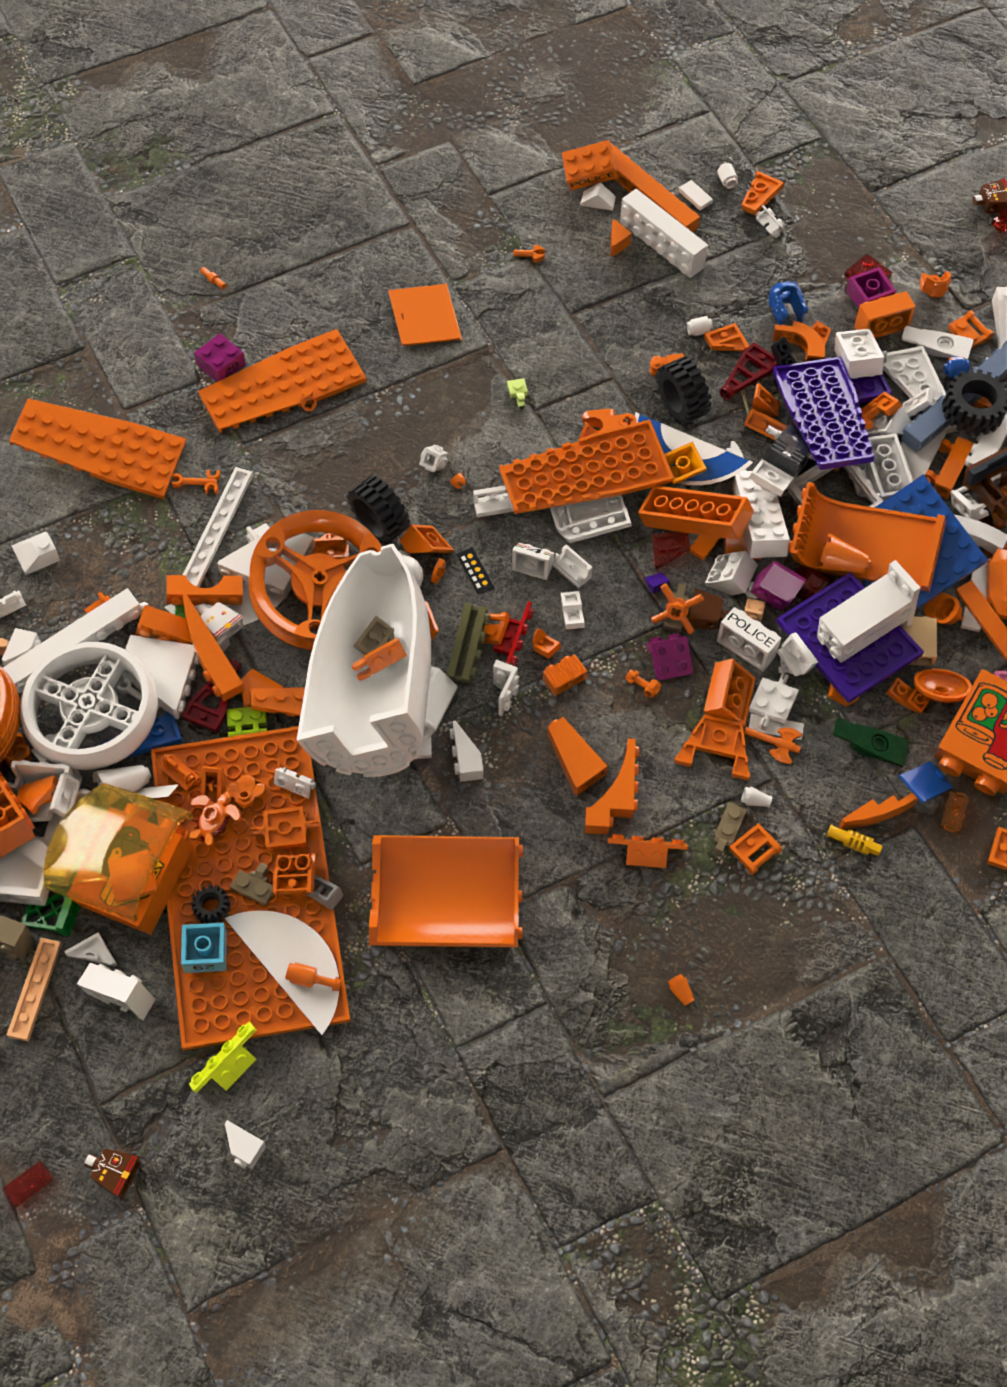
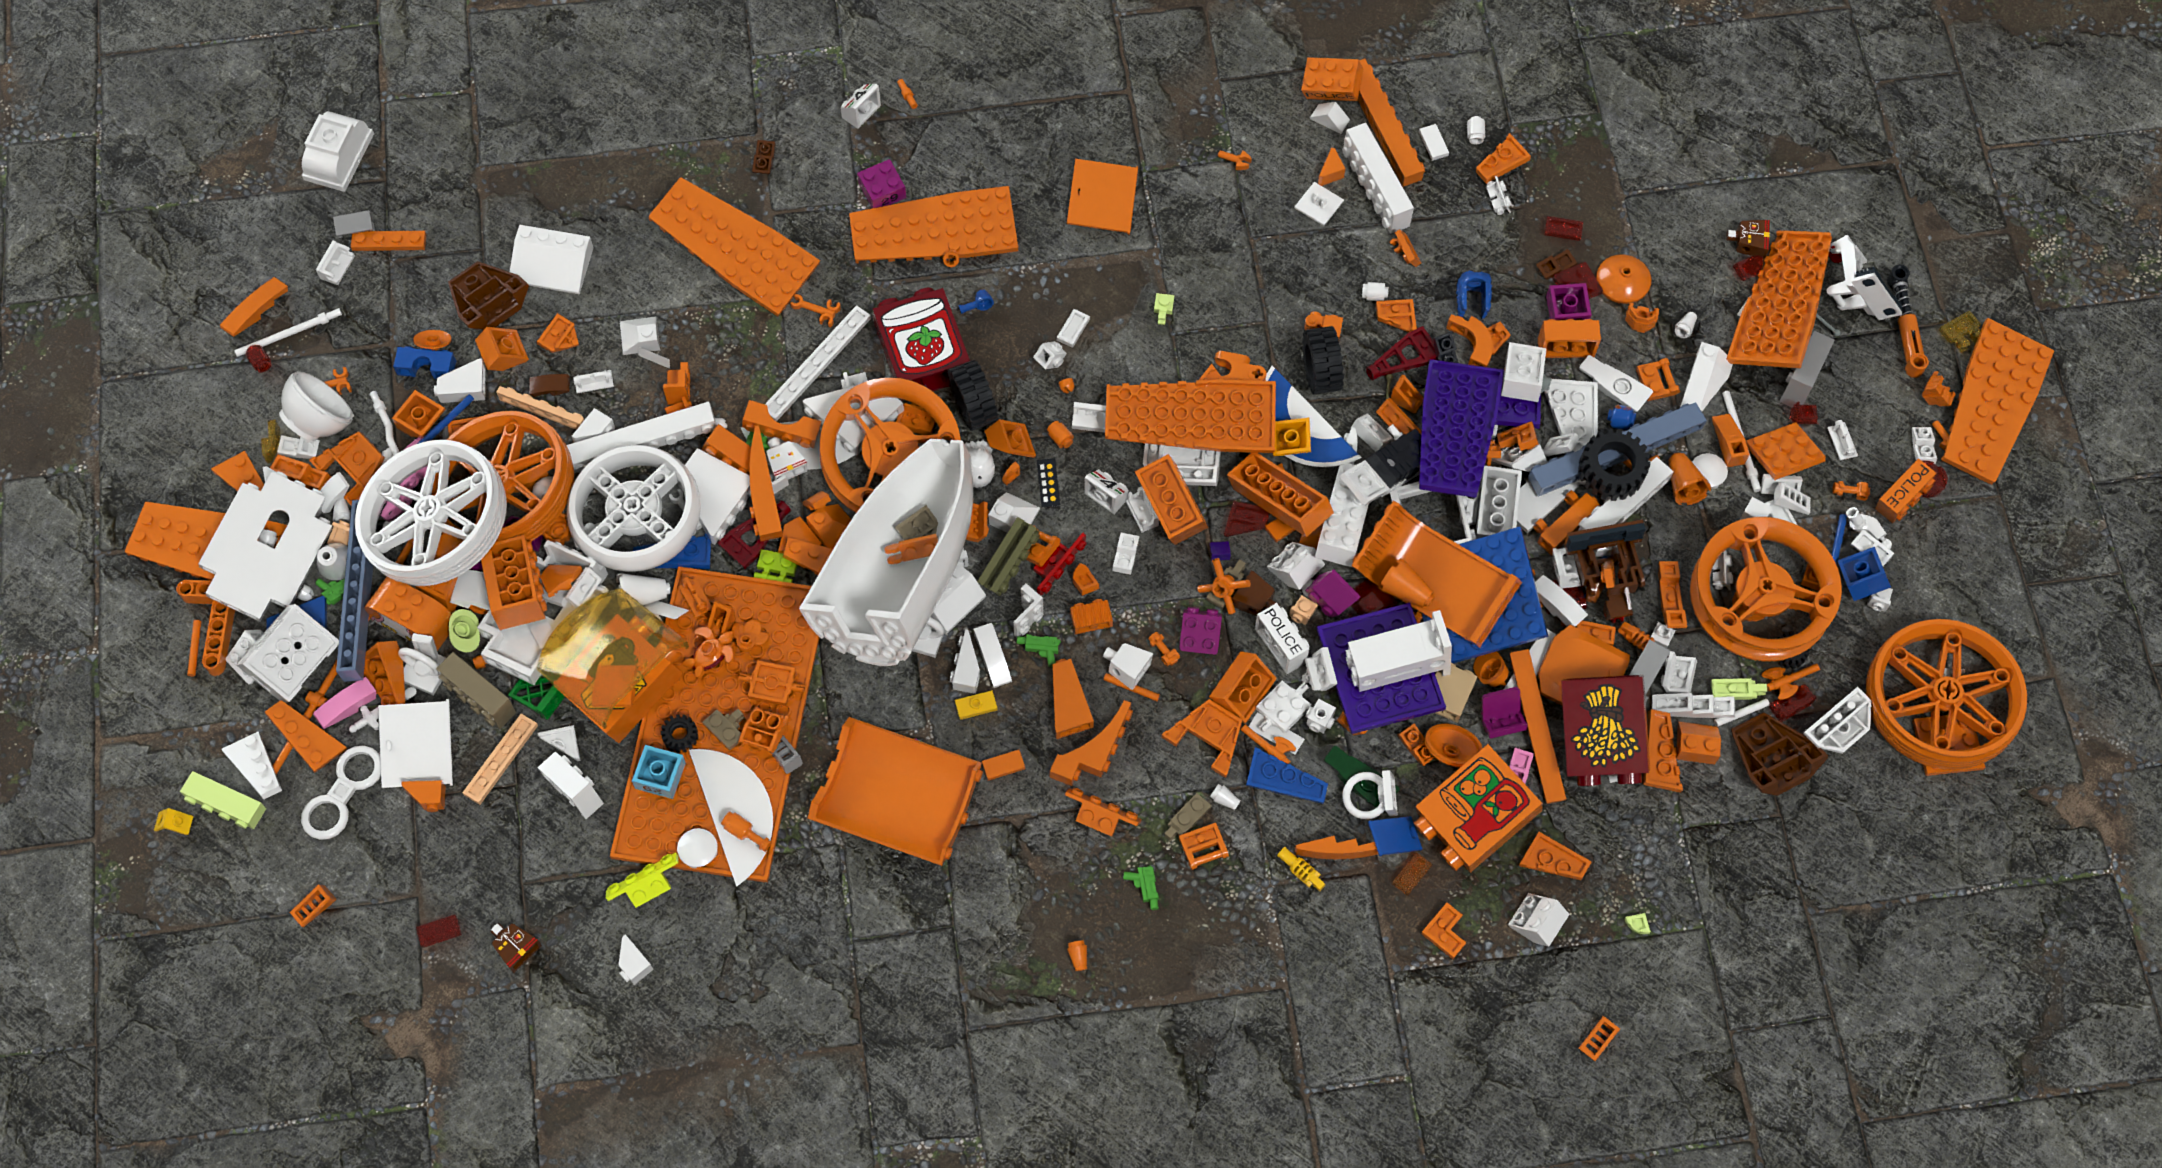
camera: 20 degrees right, 5 degrees up
(57, 567) = (654, 357): none -> white sticker
(89, 584) = (677, 384): none -> orange panel
(99, 365) = (764, 157): none -> reddish brown slope
(175, 296) = (861, 105): none -> white slope
(265, 648) = (817, 501): none -> orange slope
(269, 1010) = (697, 847): none -> white dish
(285, 668) = (828, 524): none -> orange slope
(288, 780) = (790, 635): white hinge -> none
(307, 474) = (920, 337): none -> brick
(352, 432) = (982, 302): none -> blue bar
(443, 431) = (1073, 328): none -> white tile
(450, 606) = (1008, 508): none -> white slope
(470, 524) = (1060, 434): none -> orange brick
(486, 737) = (992, 655): none -> white slope
(488, 788) = (976, 705): none -> yellow plate
(532, 713) = (1046, 646): none -> bright green piece
(537, 835) = (1003, 765): none -> orange tile
(600, 546) = (1171, 499): none -> orange brick
(616, 706) = (1128, 664): none -> white torso
(618, 270) = (1319, 203): none -> white piece
(627, 726) = (1139, 690): none -> orange bar
(715, 898) = (1146, 880): none -> bright green piece
(716, 289) = (1406, 246): none -> orange plate
(748, 443) = (1371, 432): none -> white slope
(799, 764) = (1282, 778): none -> blue wing
(812, 697) = (1320, 716): none -> white brick
(836, 232) = (1563, 228): none -> clear red plate
(844, 262) = (1556, 264): none -> reddish brown slope
(903, 744) = (1386, 794): none -> white tile
(904, 259) = (1620, 286): none -> orange dish
(970, 645) = (1502, 713): none -> magenta bracket
(974, 280) = (1686, 325): none -> white cone

